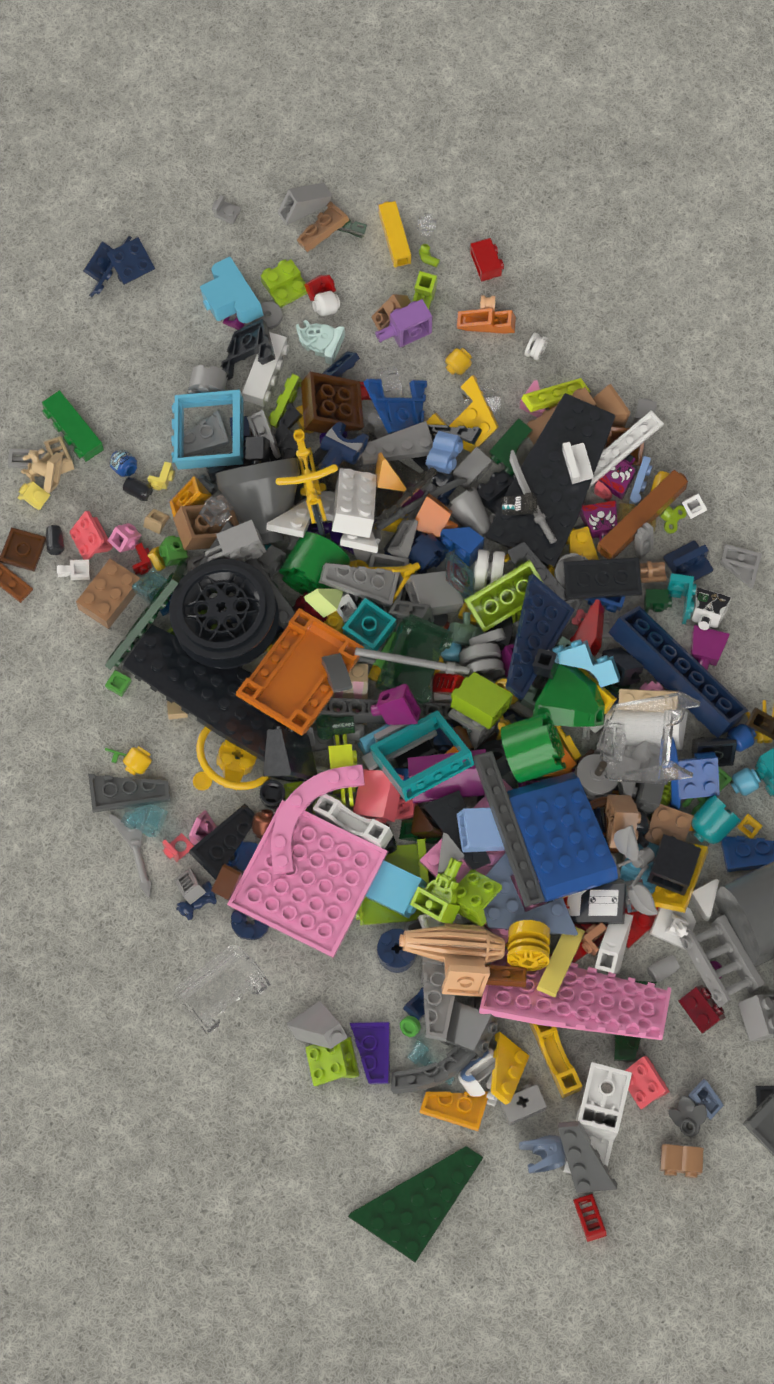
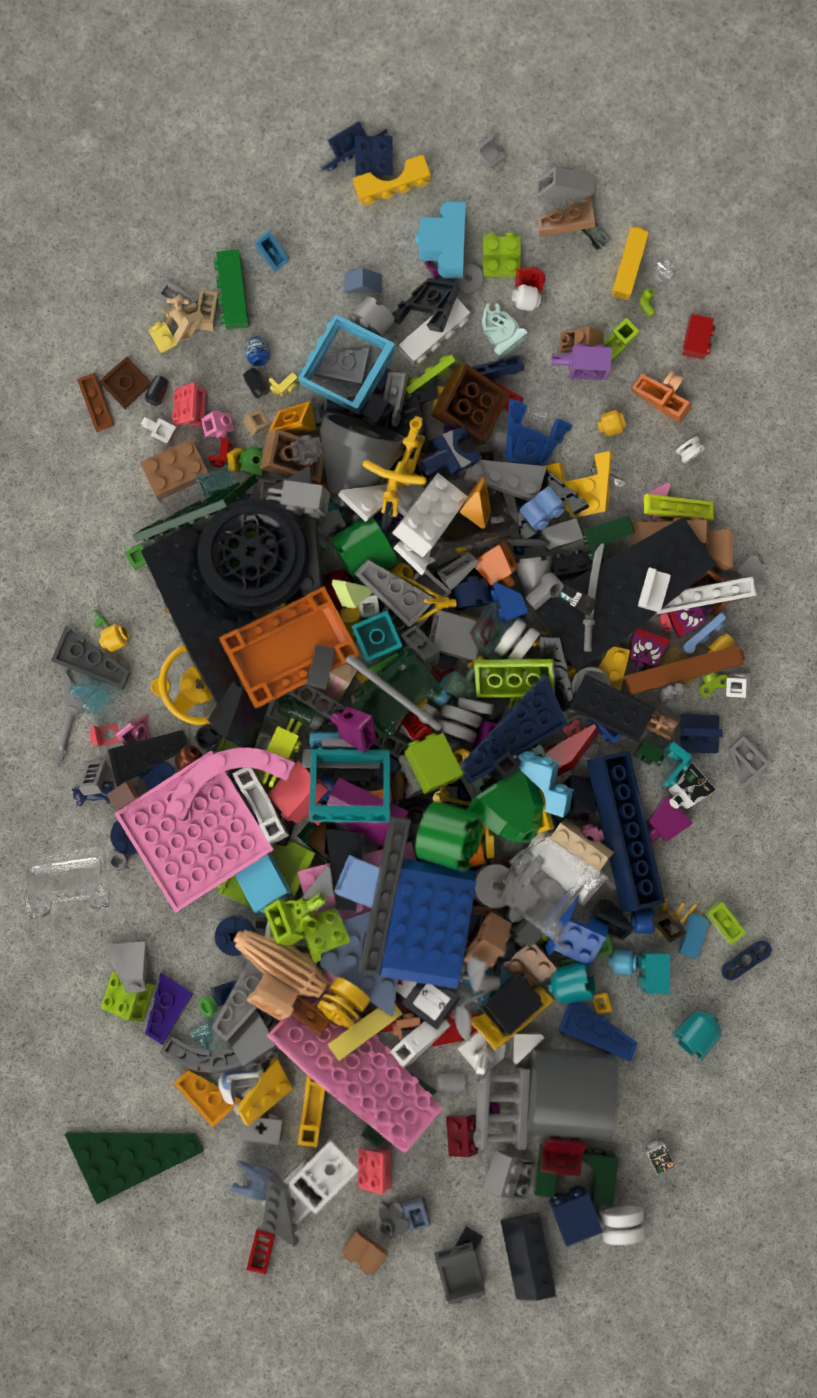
camera: 25 degrees right, 15 degrees up
(87, 379) = (271, 251): none -> dark azure slope
(143, 288) = (370, 188): none -> yellow arch
(179, 362) = (362, 281): none -> sand blue slope
(253, 948) = (117, 861): none -> light grey tile
(488, 511) = (549, 587): none -> light grey piece

